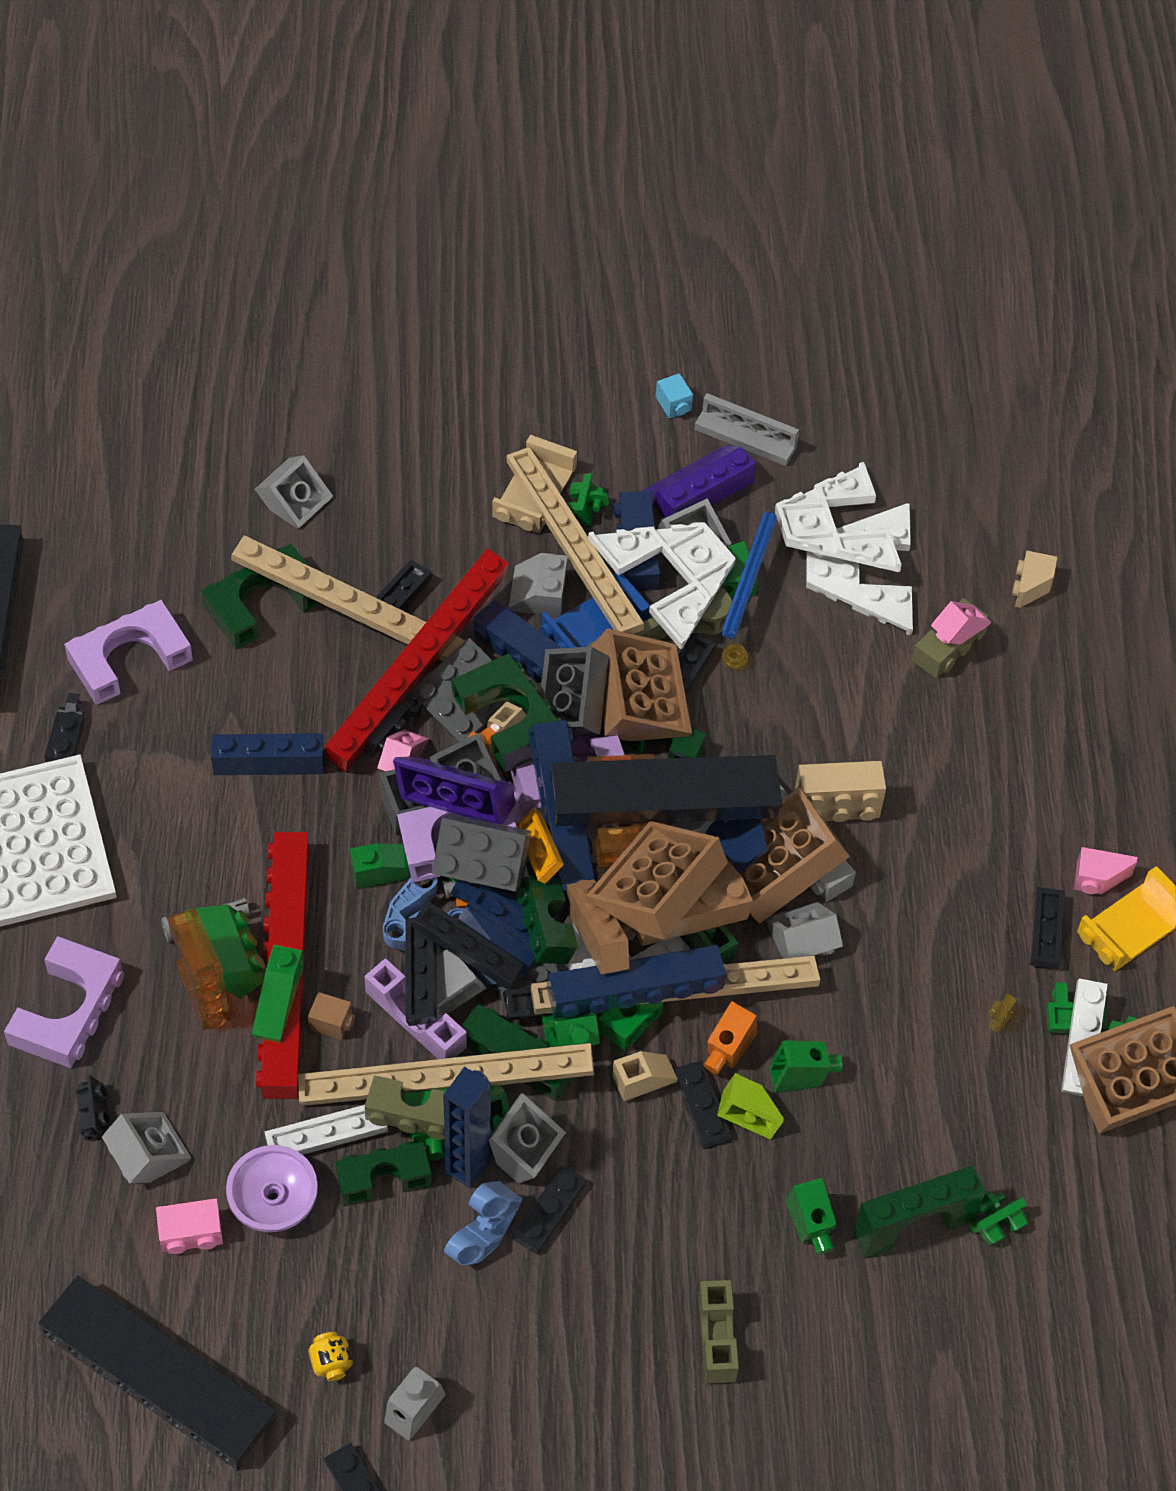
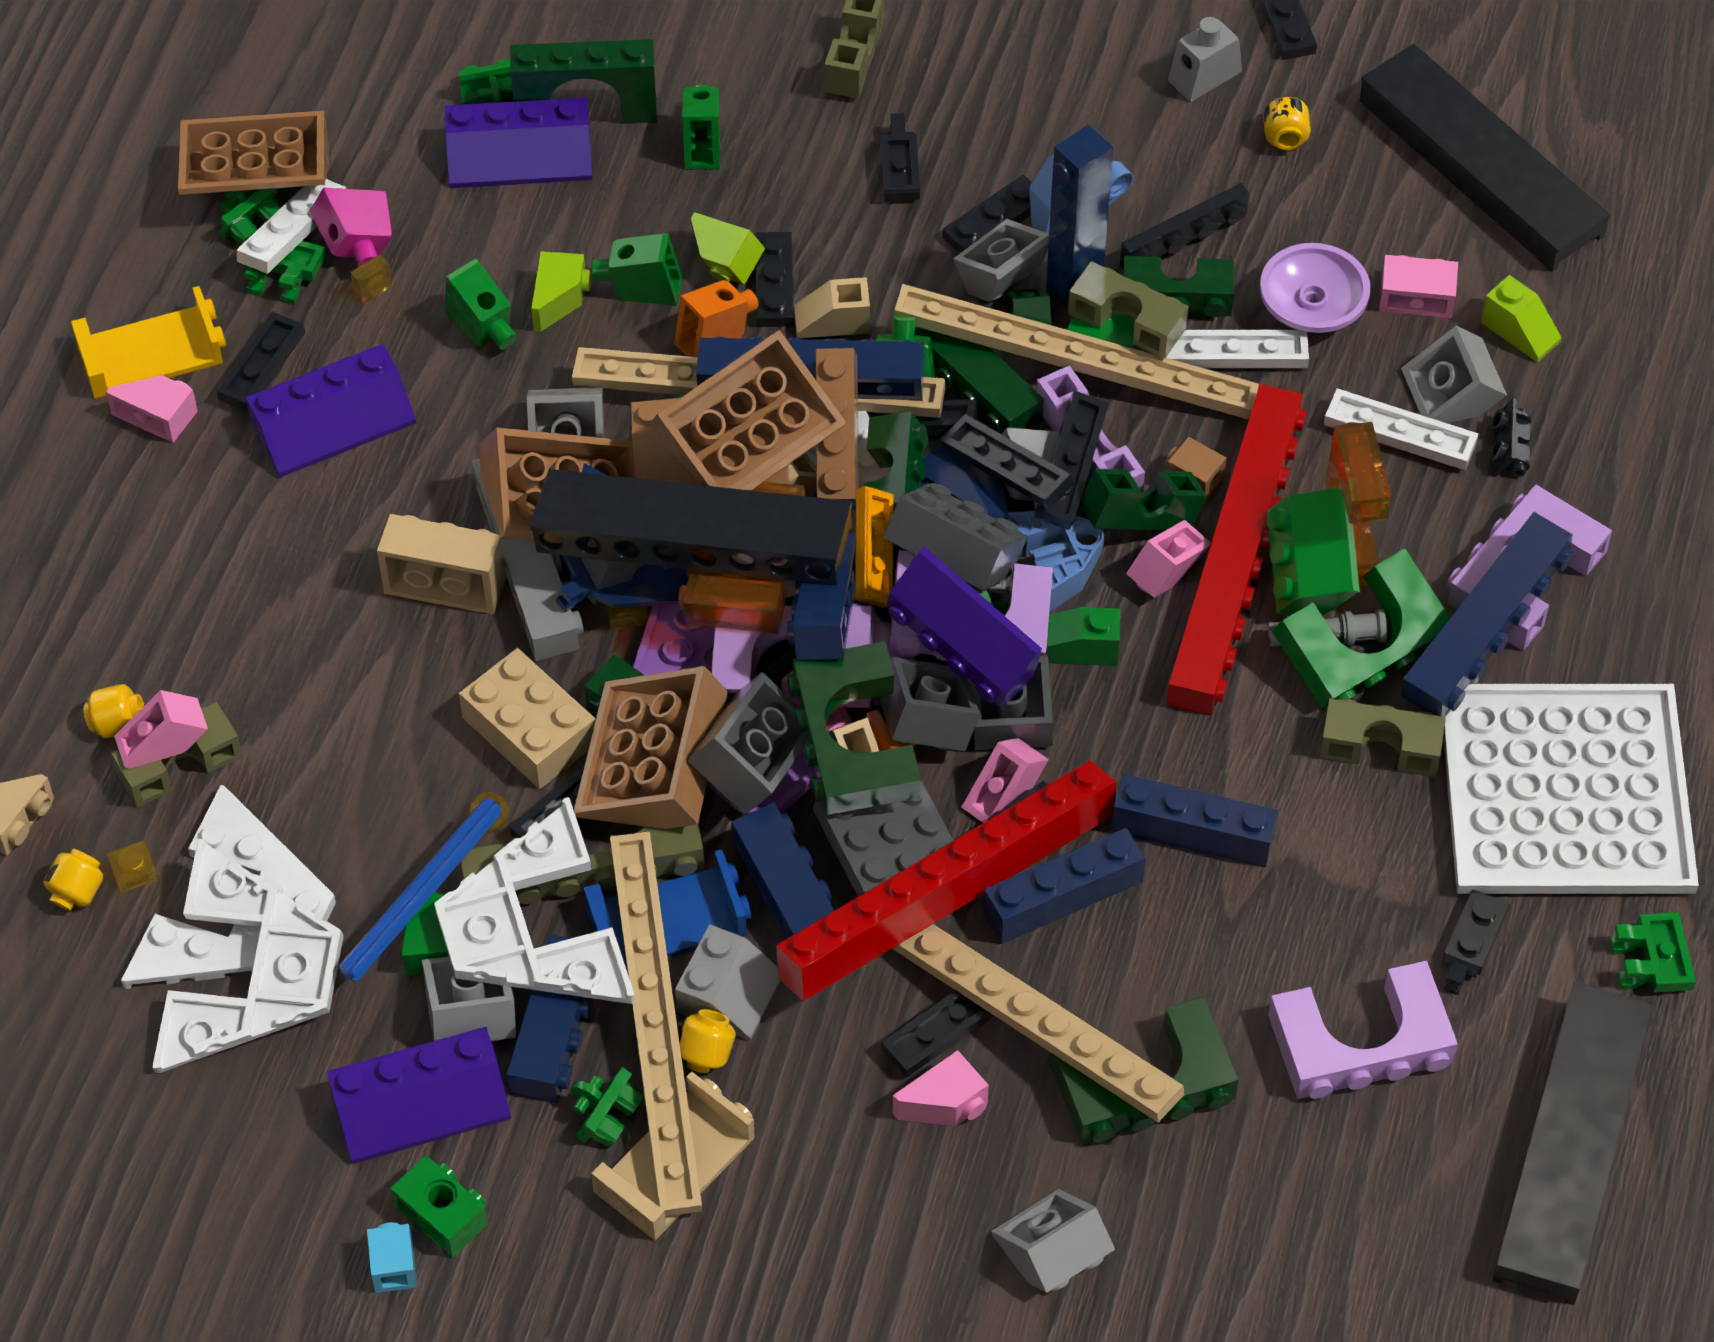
camera: 160 degrees left, 0 degrees up
(86, 927) = (1487, 616): none -> dark blue brick
(102, 1217) = (1520, 318): none -> lime slope
(172, 849) = (1412, 734): none -> olive arch
(181, 1095) = (1404, 429): none -> white plate
(188, 881) = (1336, 670): none -> green arch
(278, 993) = (1256, 480): green slope -> none
(331, 936) = (1168, 558): none -> bright pink slope
(341, 691) = (1063, 885): none -> dark blue brick
(348, 970) = (1117, 502): none -> dark green arch
(382, 1237) = (1189, 225): none -> black plate
(383, 553) = (943, 1094): none -> bright pink slope
(529, 545) = (706, 1040): none -> yellow head
(642, 1236) = (900, 161): none -> black hinge
(659, 427) = (446, 1226): none -> green brick
(735, 713) = (527, 718): none -> tan brick
(747, 433) = (307, 1168): light grey fence -> none
(861, 1044) = (558, 287): none -> lime slope
(909, 1001) = (479, 306): none -> green torso
(940, 573) = (132, 866): none -> clear yellow plate
(970, 548) = (73, 879): none -> yellow head
(977, 900) = (330, 410): none -> dark purple slope
(979, 1146) = (518, 142): none -> dark purple slope
(1005, 653) = (111, 709): none -> yellow head
(1035, 1045) = (353, 222): none -> dark pink torso

